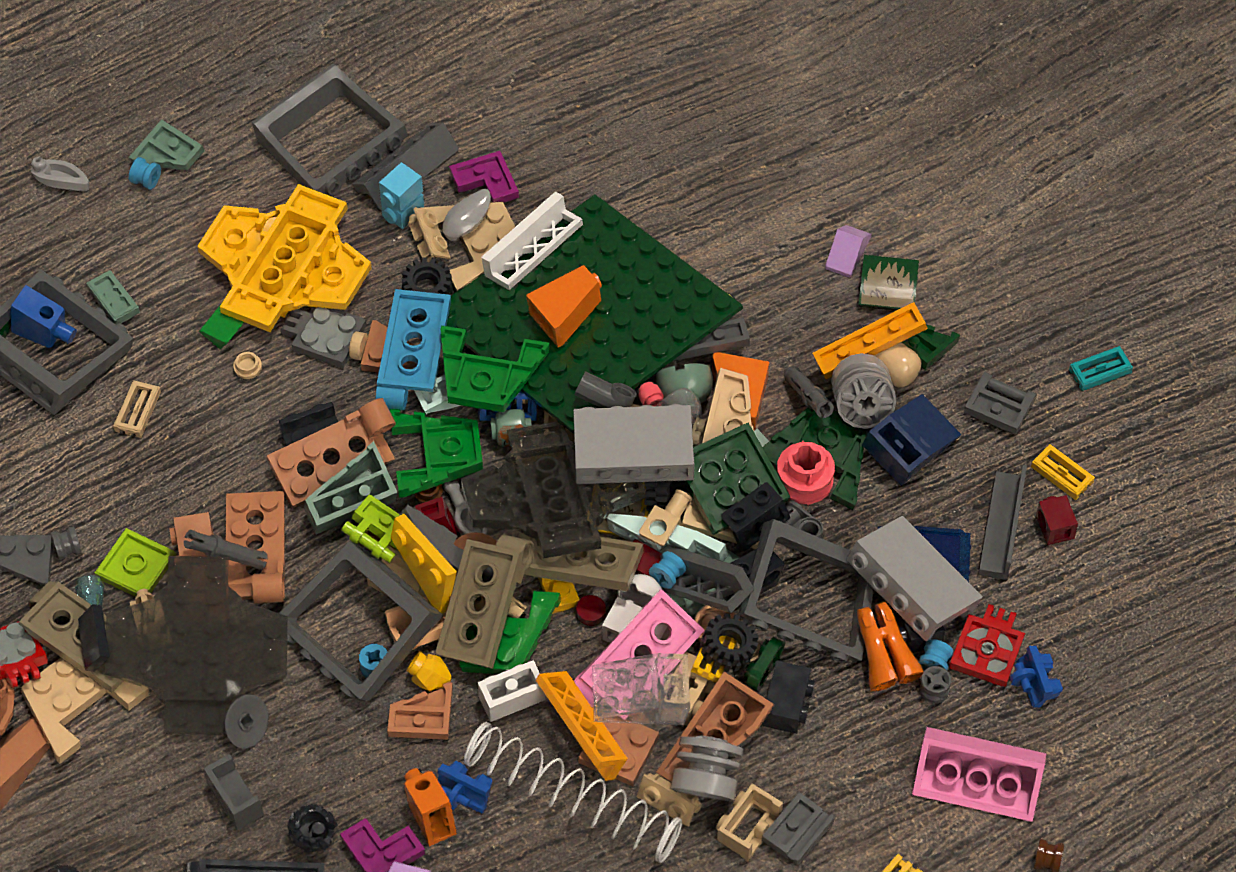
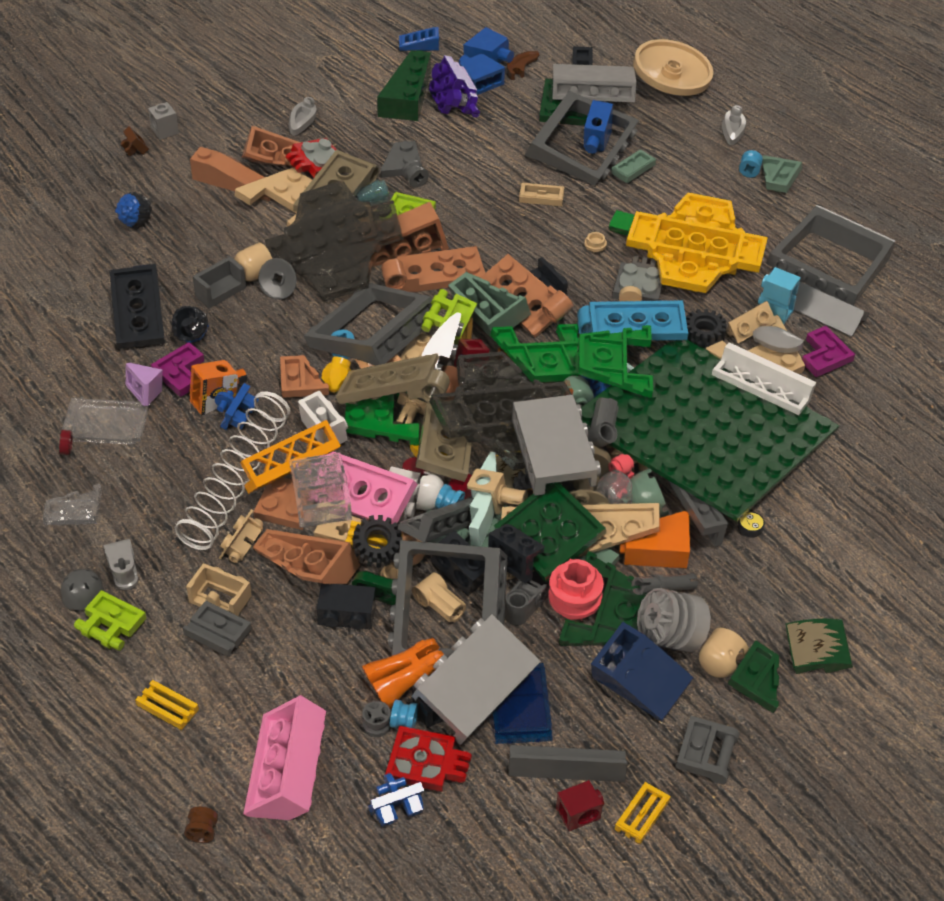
camera: 80 degrees right, 10 degrees down
(93, 637) = (324, 180): black tile -> none
(205, 744) = (252, 260): none -> tan helmet
(217, 547) = (411, 235): dark grey pin -> none
(425, 562) = (420, 332): yellow wing -> none
(565, 303) = (697, 398): orange slope -> none
(707, 768) = (253, 541): light grey wheel -> none
(789, 603) = (434, 593): none -> tan piece
(847, 250) = (850, 607): lavender slope -> none
(871, 338) = (737, 622): light orange fence -> none
(1103, 372) = (761, 822): teal tile -> none

